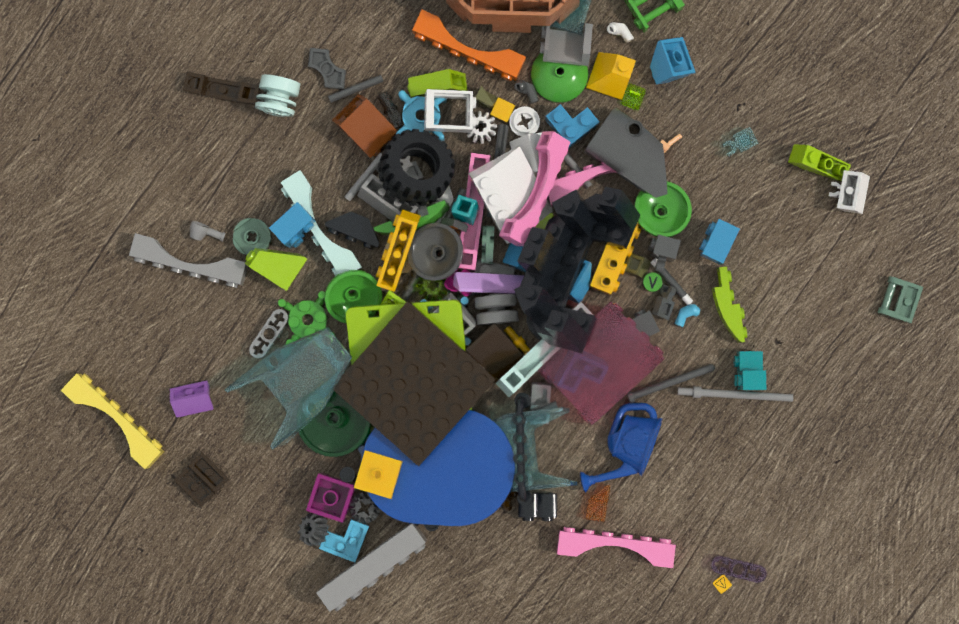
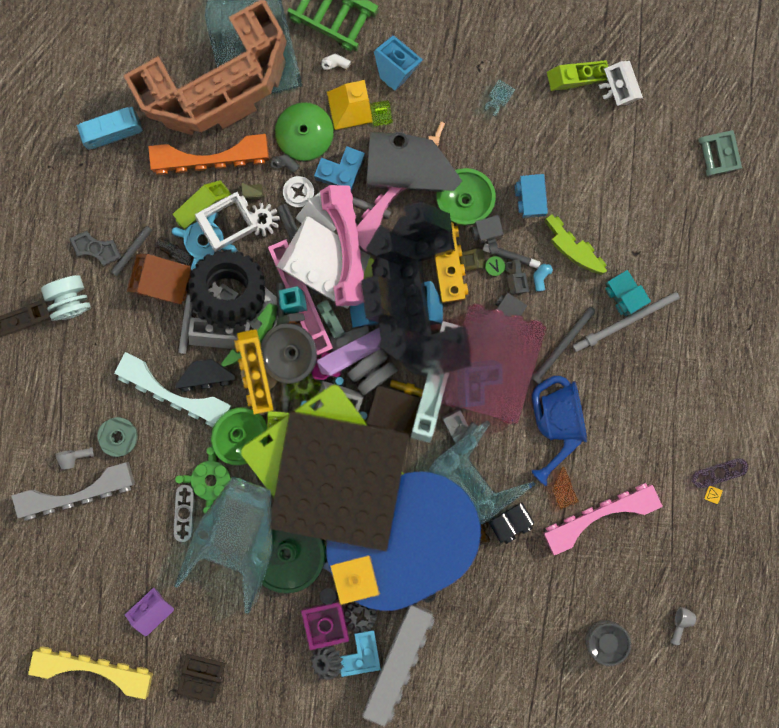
camera: 40 degrees left, 0 degrees up
(276, 265) = (154, 449): lime slope -> none
(292, 224) = (147, 405): dark azure brick -> none
(502, 110) = (273, 193): yellow tile -> none
(521, 401) = (443, 439): black bar -> none
(566, 46) = (296, 103): light grey panel -> none

